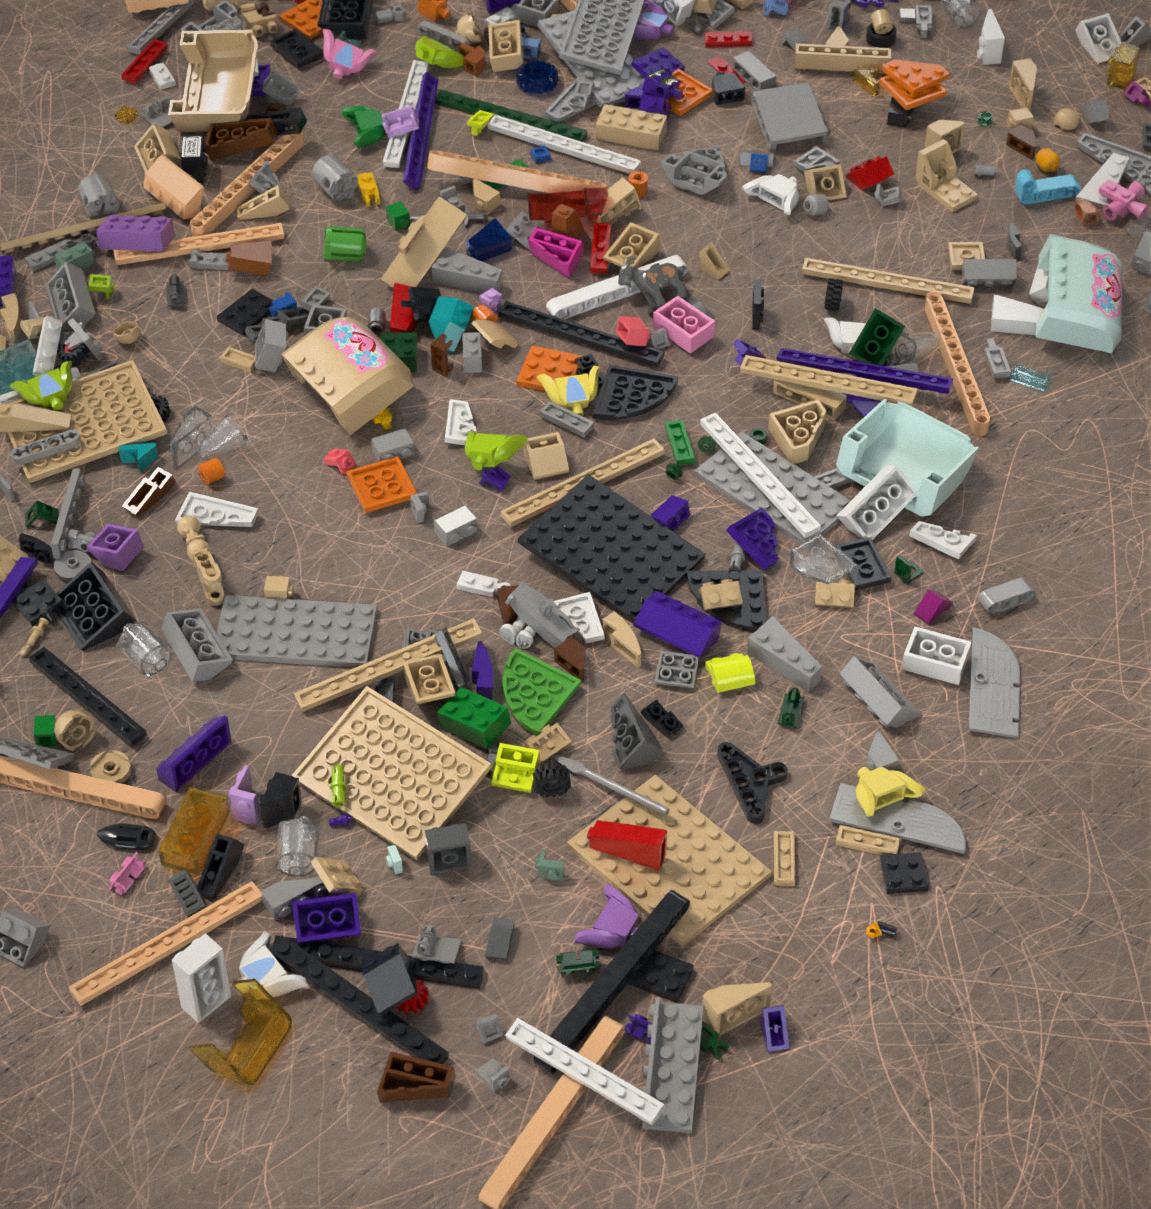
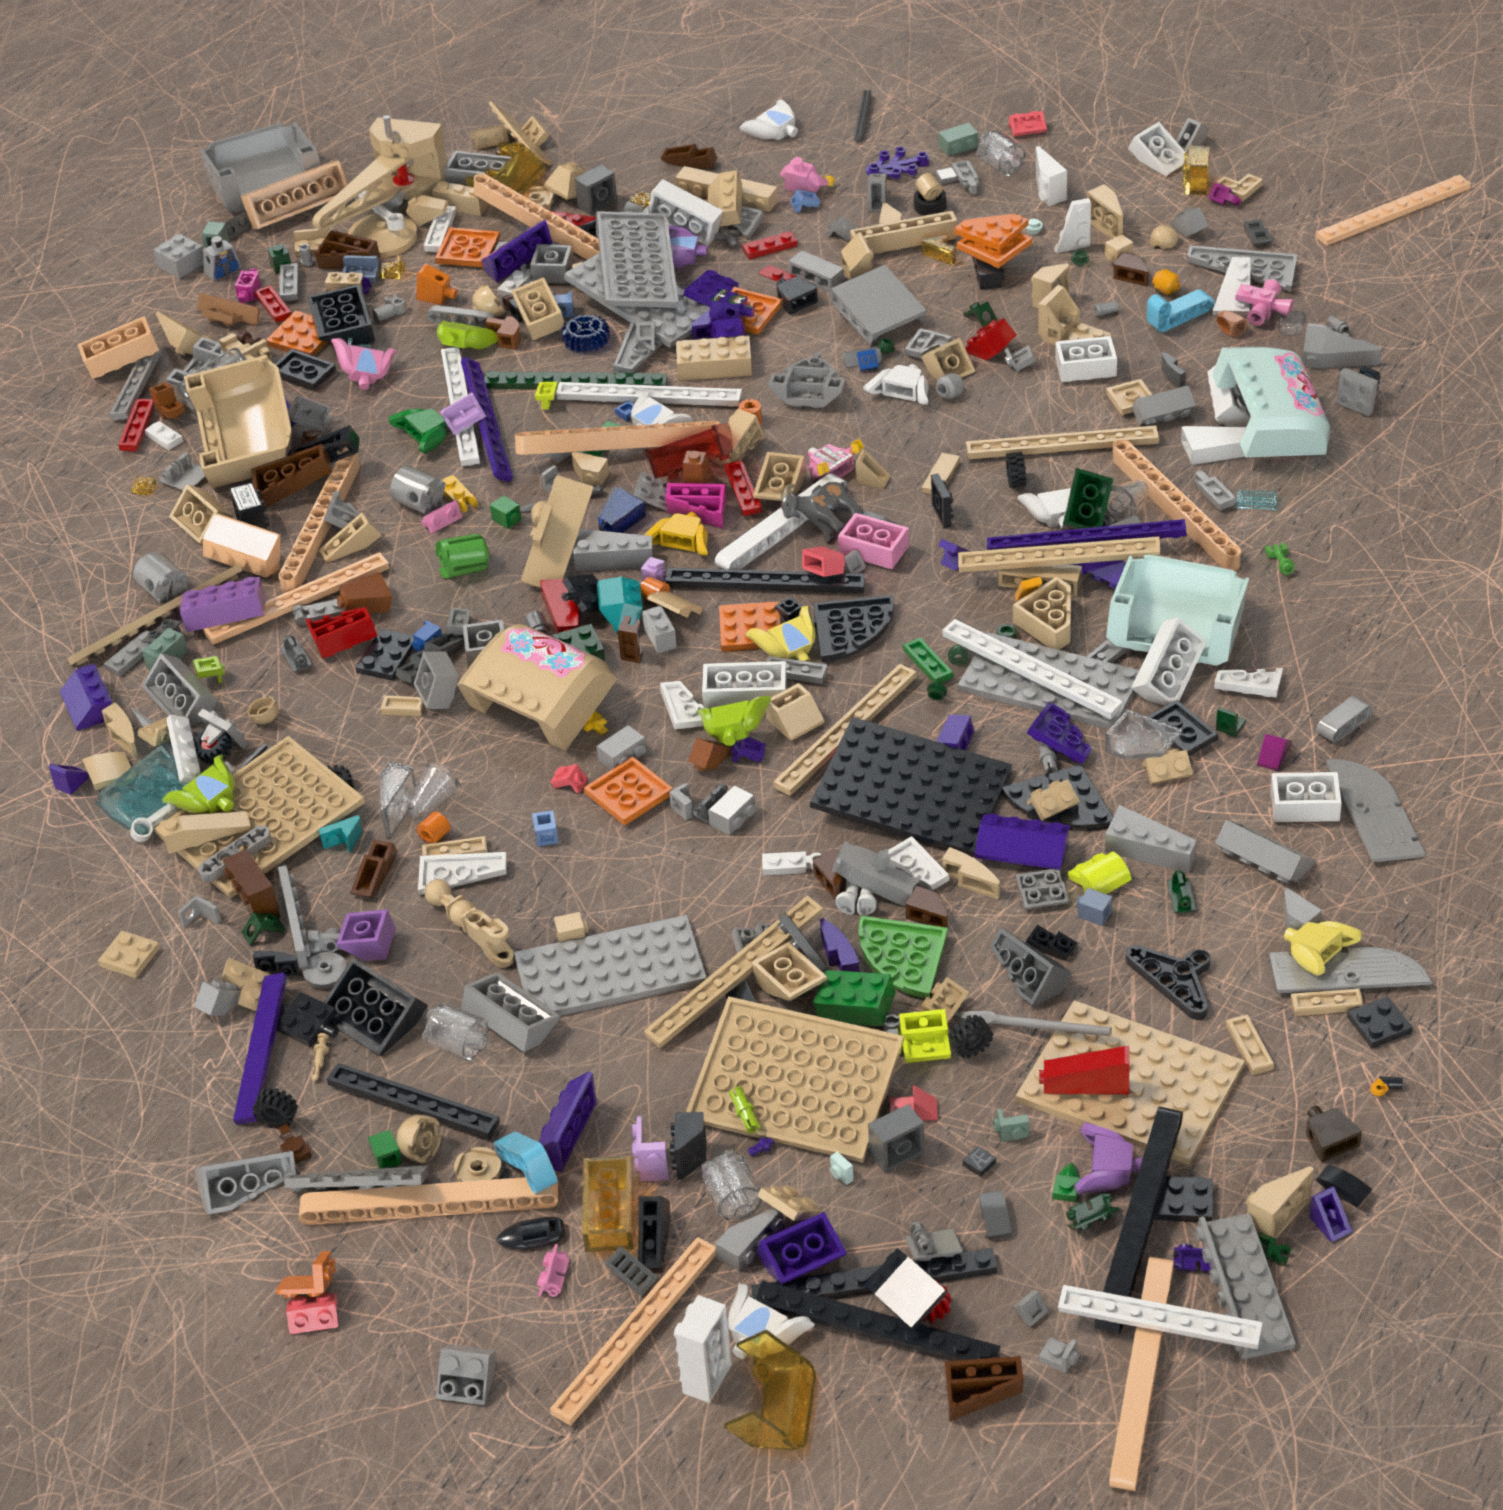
camera: 15 degrees left, 5 degrees down
(43, 476) = (250, 884): none -> reddish brown wedge
(146, 775) = (529, 1157): none -> medium azure beam
(173, 47) = (166, 402): none -> dark orange brick
(217, 283) = (342, 631): none -> red wedge
(226, 493) = (461, 846): none -> tan tile
(299, 497) = (545, 828): none -> medium blue brick
(346, 206) = (442, 517): none -> bright pink hinge
(431, 516) = (702, 808): none -> dark grey hinge
(459, 471) = (708, 754): none -> dark orange slope
(482, 825) = (921, 1102): none -> coral slope
(510, 889) = (979, 1161): none -> black tile
(514, 417) = (741, 682): none -> white brick
(530, 273) = (681, 533): none -> yellow torso
(554, 161) = (649, 411): none -> white torso
(567, 933) = (1065, 1184): none -> green plate
(685, 244) = (833, 460): none -> torso
(712, 698) = (1094, 906): none -> sand blue brick
(775, 278) = (944, 467): none -> tan tile
(780, 154) = (886, 345): none -> dark green plate
(790, 401) = (1027, 587): none -> light orange plate
(792, 68) = (856, 257): none -> tan slope
(798, 1001) = (1344, 1183): none -> black slope
(812, 957) = (1331, 1133): none -> dark brown torso
(873, 141) = (979, 309): none -> dark green bracket
(942, 211) = (1086, 359): none -> white brick
(959, 80) = (1034, 226): none -> light aqua plate
(990, 91) = (1077, 227): none -> white wing
(1024, 443) = (1285, 565): none -> bright green hinge

